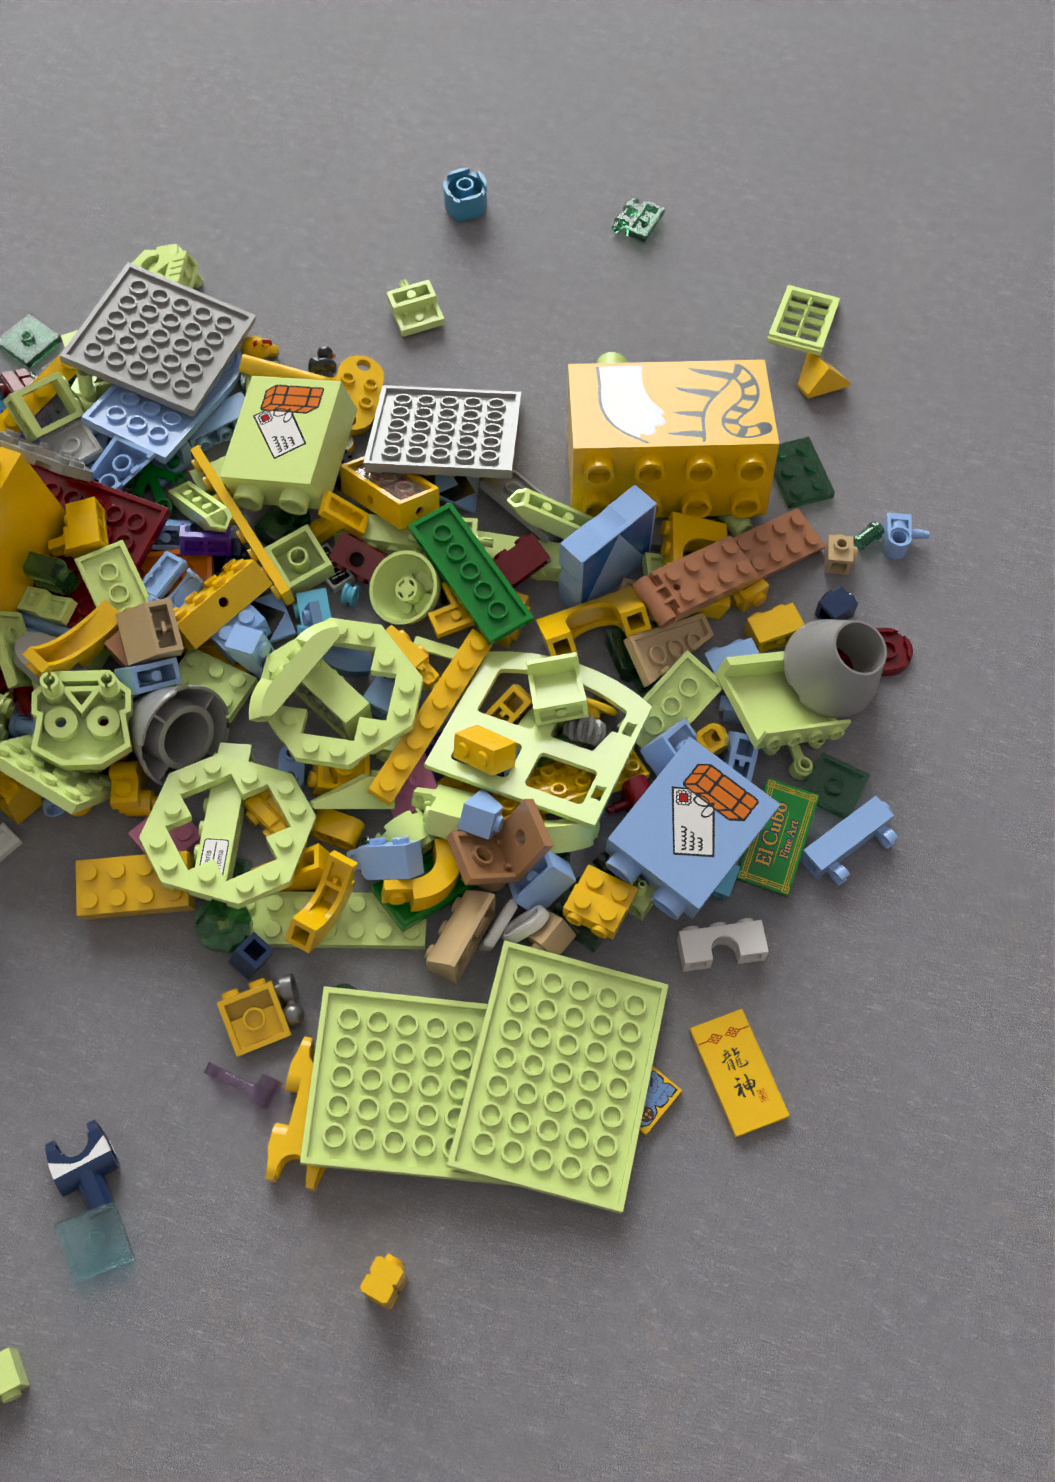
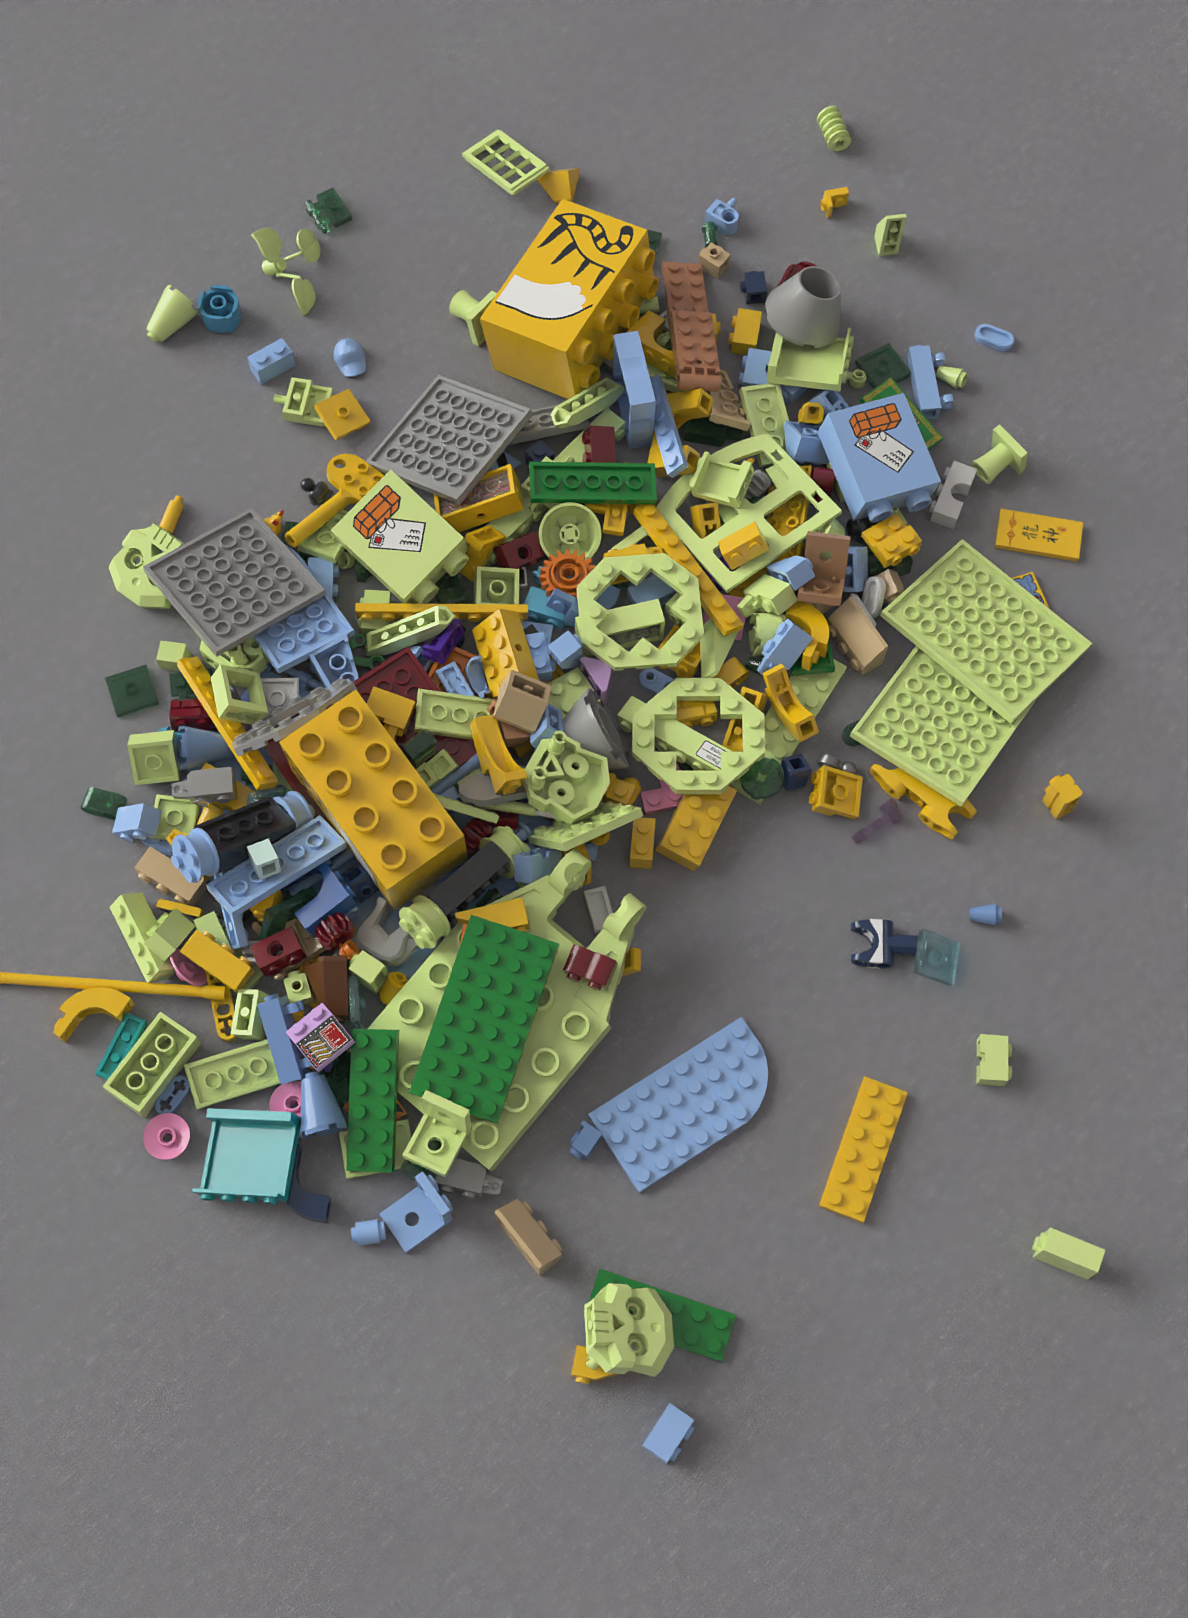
camera: 60 degrees left, 5 degrees up
(86, 843) = (642, 843): none -> yellow brick
(185, 1274) = (987, 914): none -> medium blue cone
(227, 275) = (172, 514): none -> yellow cylinder
(238, 706) = (598, 675): none -> lavender slope
(271, 695) = (614, 623): yellowish green brick -> none
(366, 602) = (558, 567): none -> orange gear
(420, 340) = (342, 414): none -> yellow plate
(431, 162) = (170, 314): none -> yellowish green cone
(439, 259) = (271, 361): none -> light blue brick
(488, 517) = (538, 452): none -> dark blue brick
(493, 317) = (350, 357): none -> light blue piece
(541, 181) = (270, 246): none -> yellowish green plant
(583, 606) = (666, 431): none -> light blue plate
(802, 969) = (1005, 452): none -> yellowish green plant
(879, 865) = (953, 376): none -> yellowish green cone
(968, 885) = (994, 337): none -> light blue tile
(1004, 700) = (889, 234): none -> yellowish green slope
(1009, 625) = (834, 198): none -> yellow bracket

